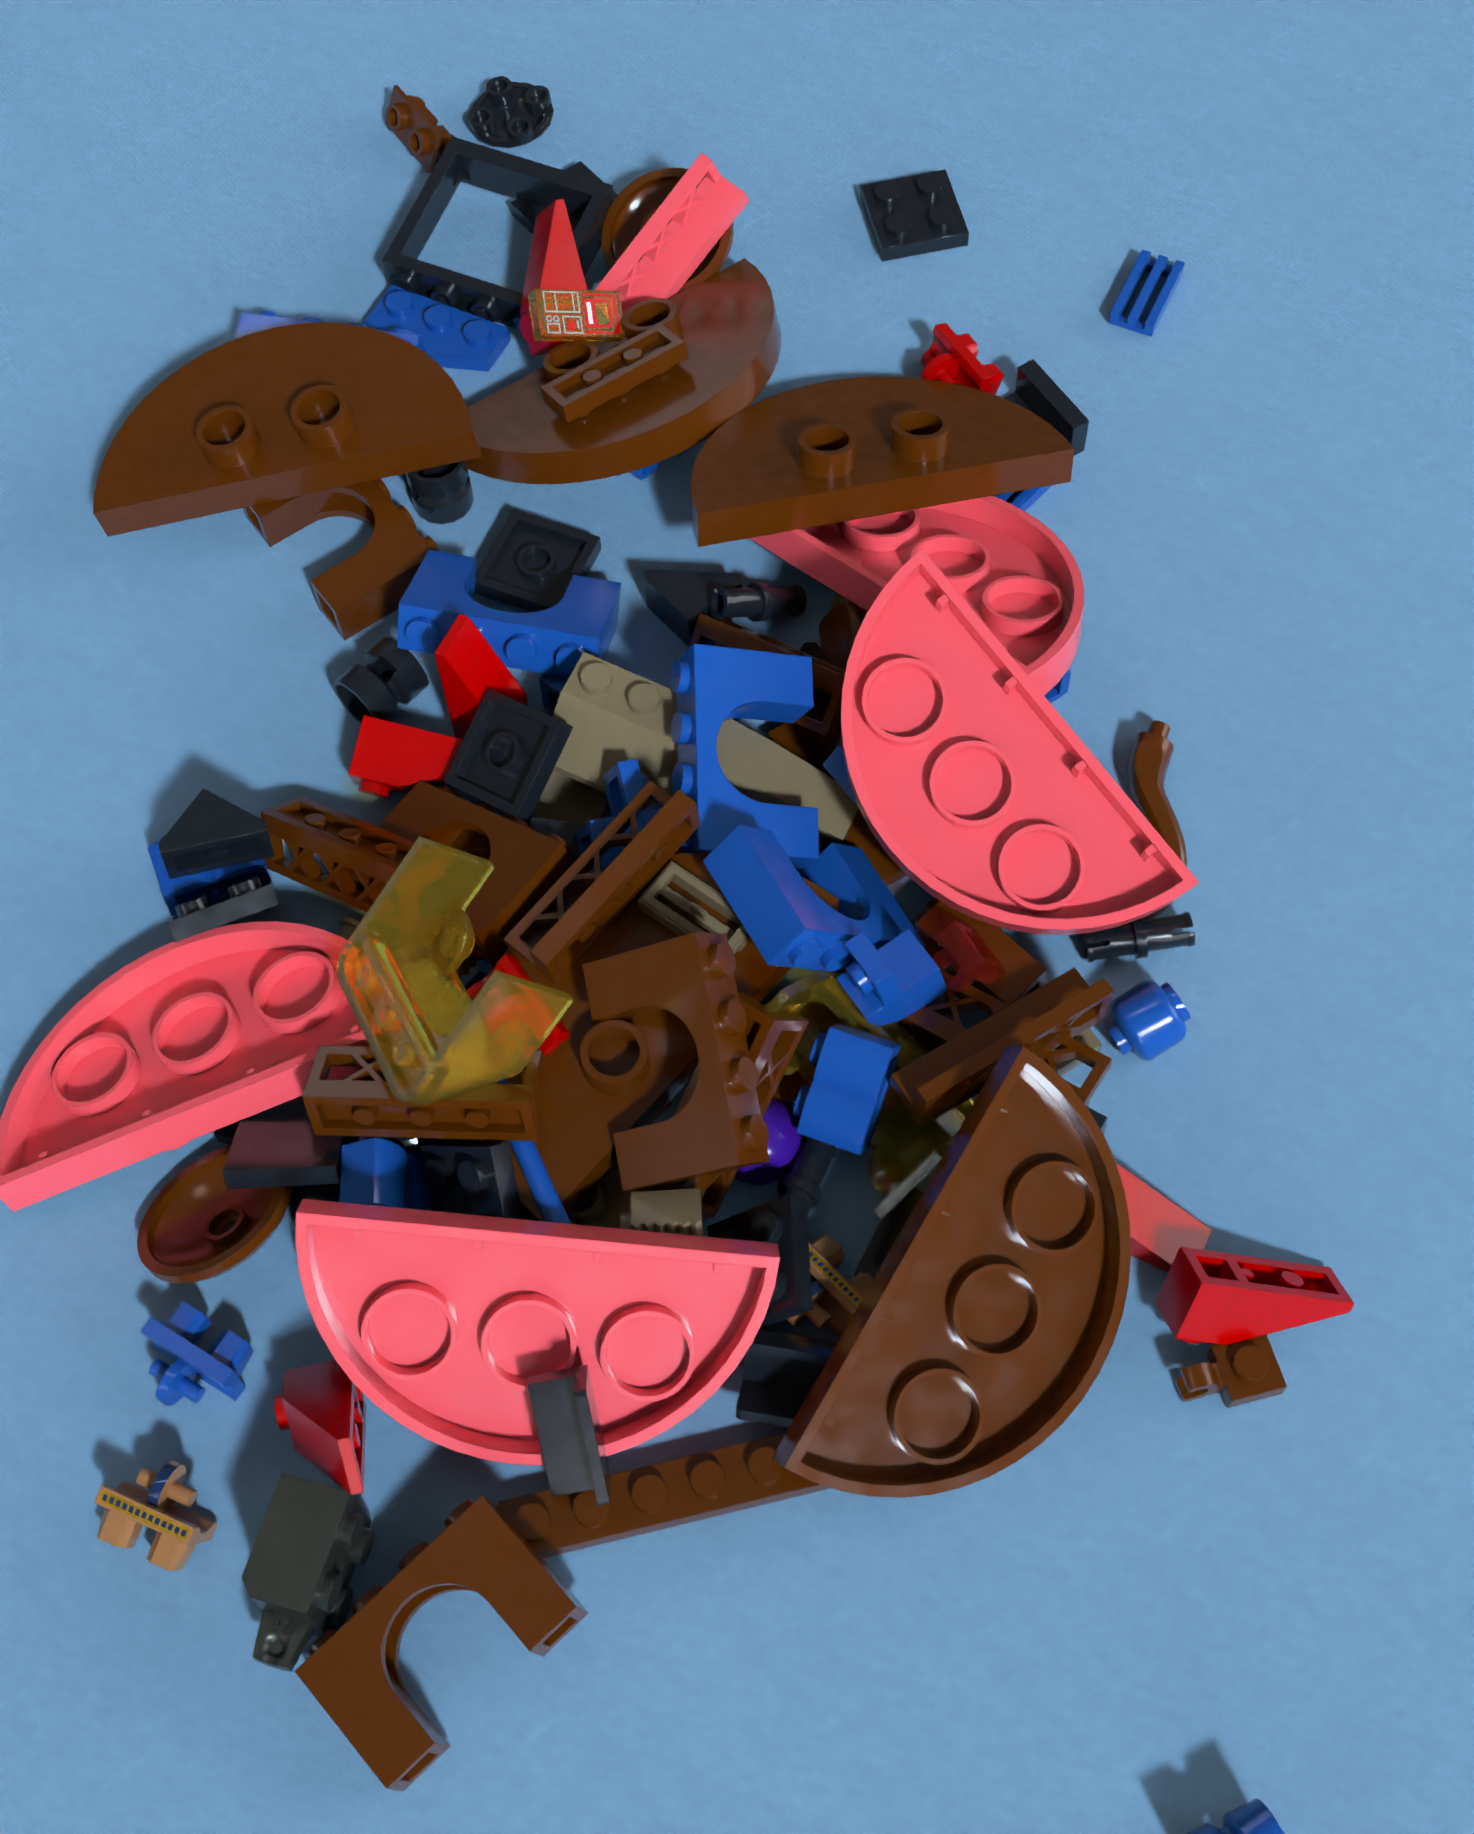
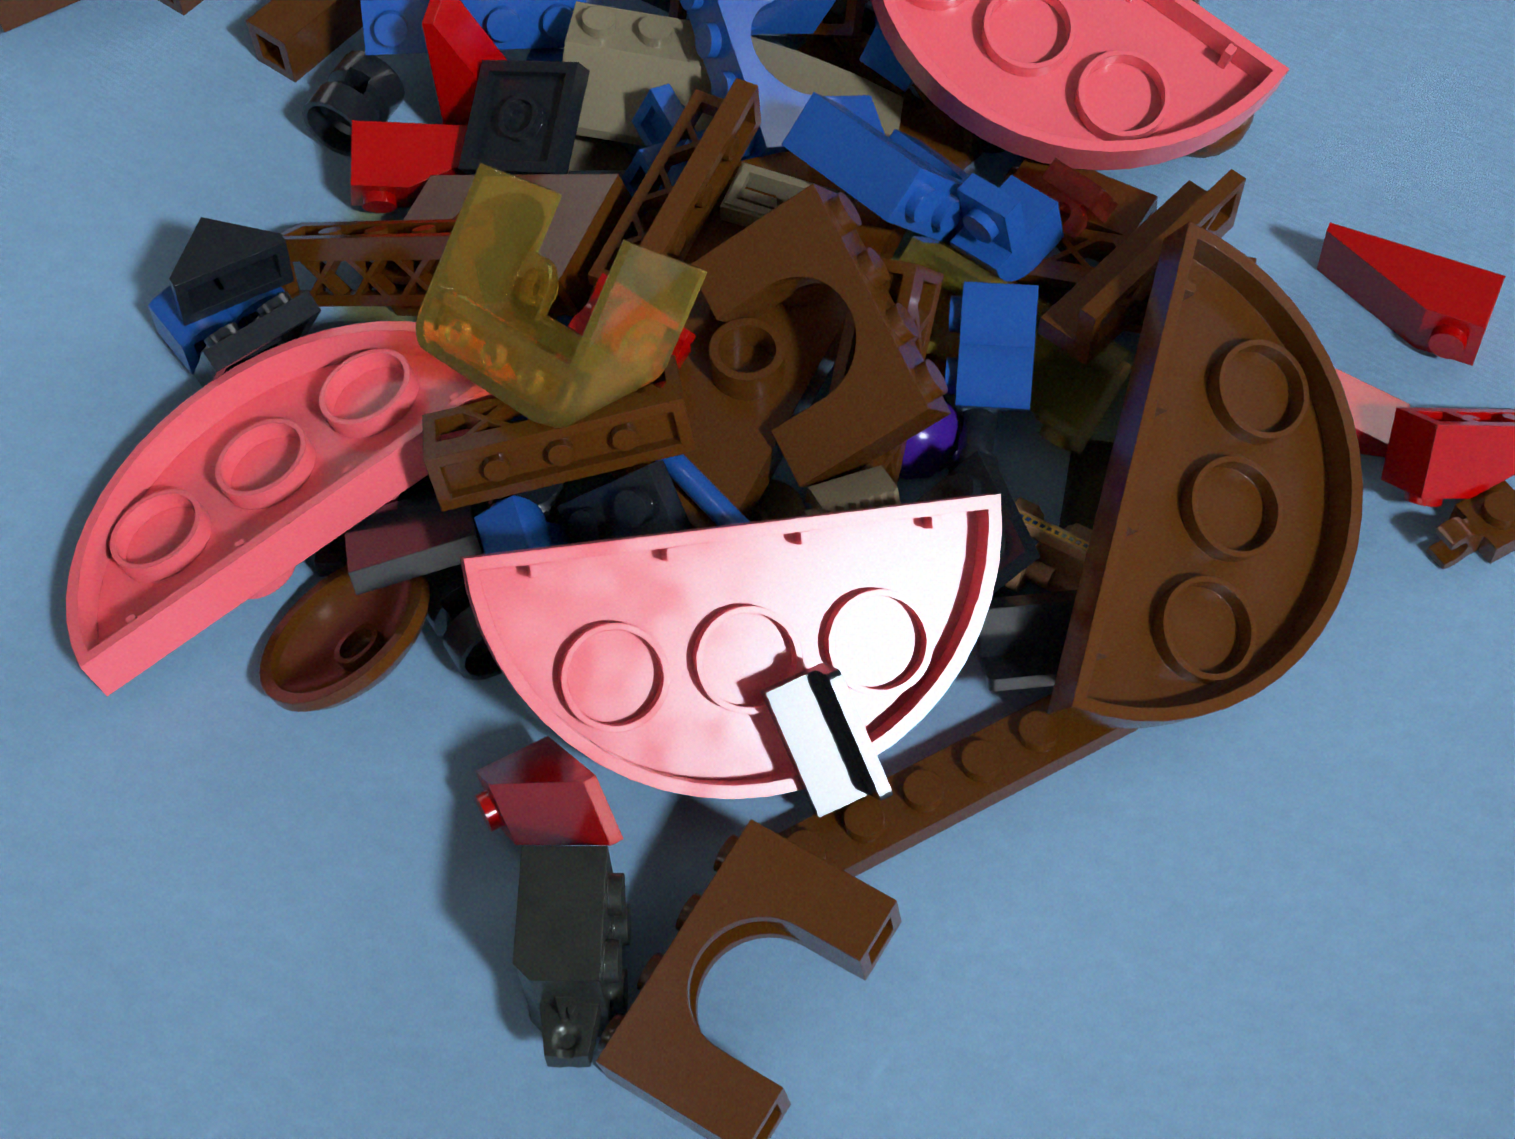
camera: 15 degrees left, 5 degrees down
(132, 1507) = (342, 958): medium nougat hips -> none
(177, 1341) = (364, 795): blue hips -> none
(1140, 937) = (1233, 154): black pin -> none
(1147, 1020) = (1274, 225): blue head -> none
(1261, 1128) = (1415, 293): none -> red slope

